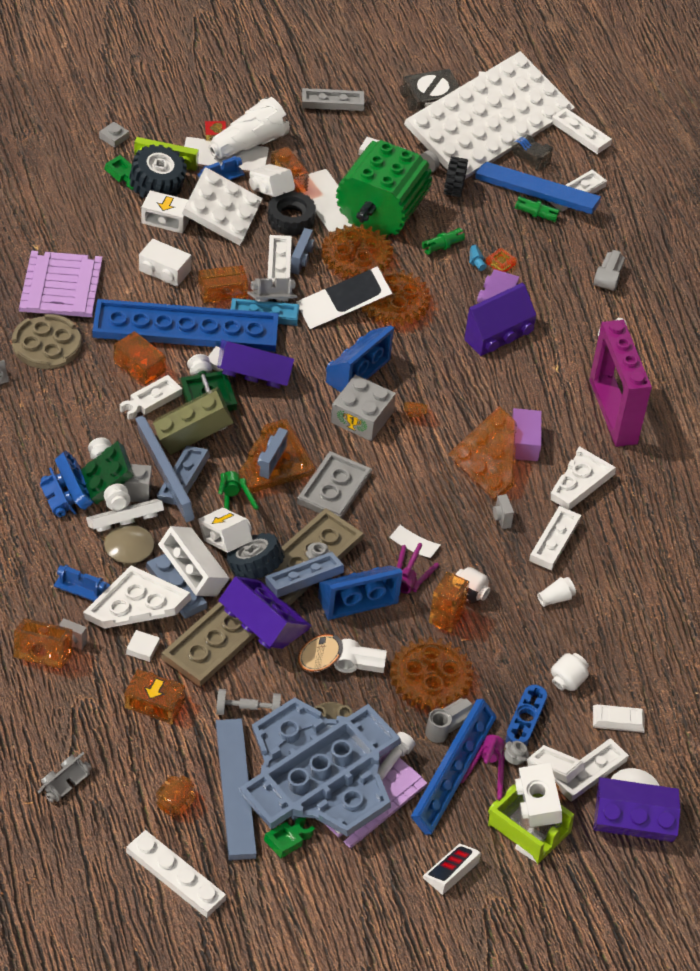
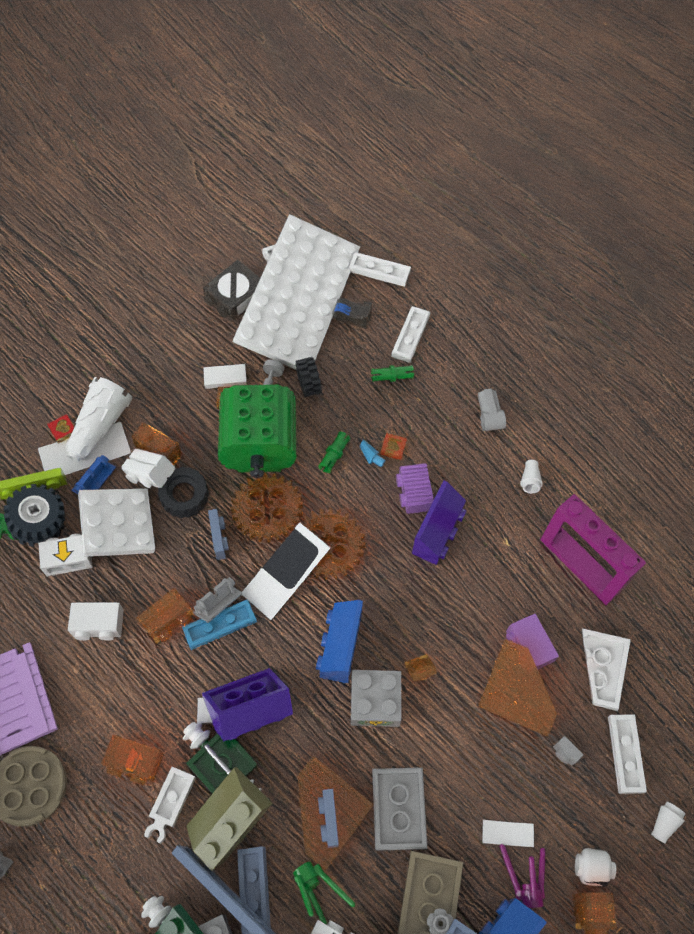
camera: 25 degrees left, 15 degrees up
(185, 324) = (153, 689): blue plate -> none
(279, 257) = (202, 556): white plate -> none
(323, 192) = (201, 454): white sticker -> none
(332, 99) = (151, 340): light grey plate -> none
(538, 187) = (381, 350): blue tile -> none

